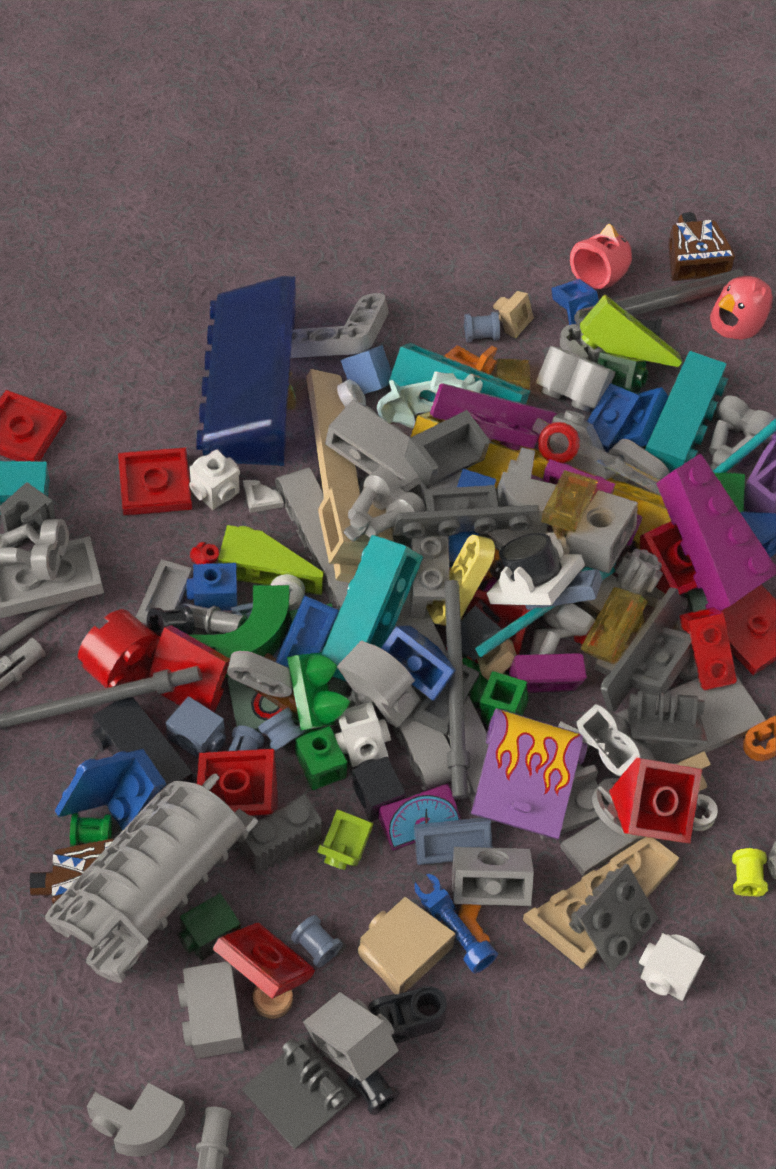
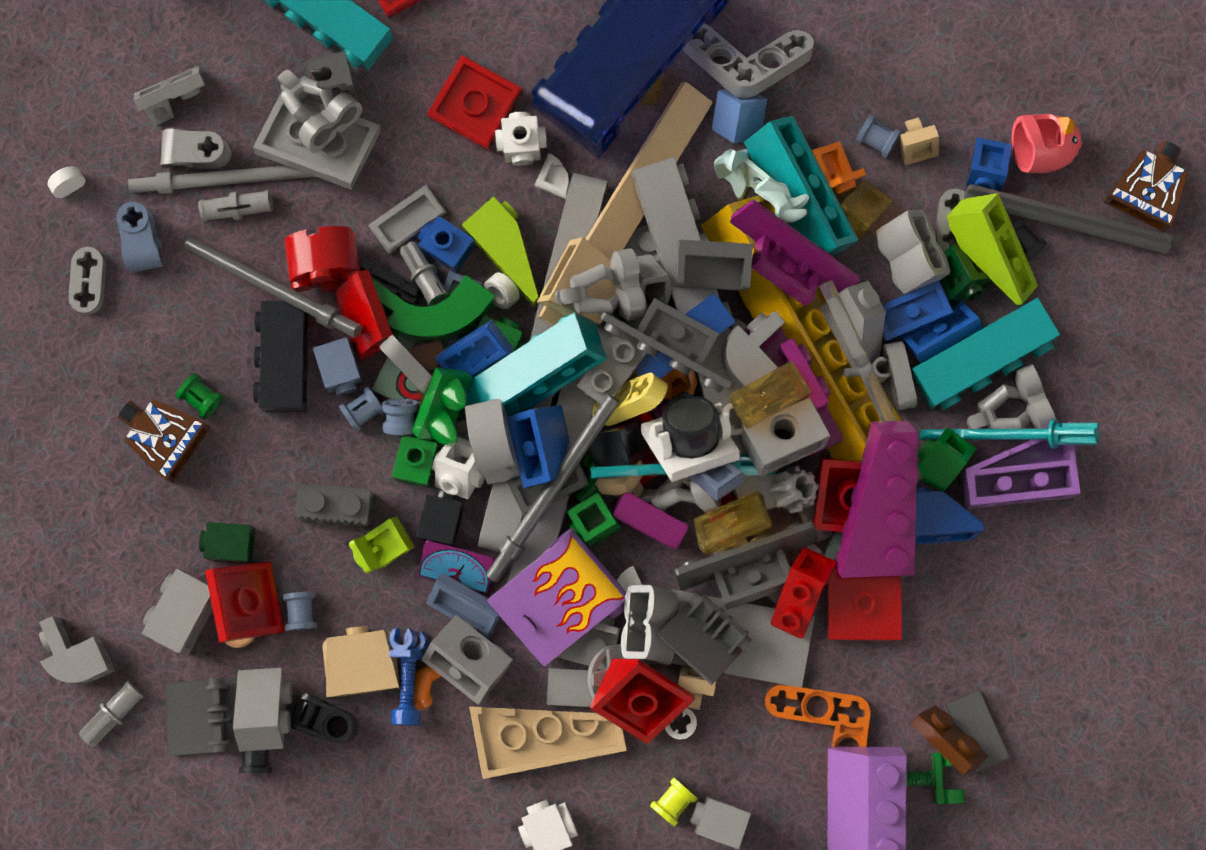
camera: 50 degrees right, 25 degrees up
(120, 782) = (246, 381): blue bracket -> none
(148, 874) = (195, 478): light grey piece -> none
(180, 618) = (383, 256): black bush -> none
(204, 553) = (459, 205): red arm -> none
(245, 779) = (326, 444): red slope -> none
(350, 390) = (703, 132): white tile -> none
(569, 432) = (838, 313): red piece -> none
(615, 916) = (535, 762): dark grey hinge -> none
(749, 301) = (1136, 282): coral piece -> none

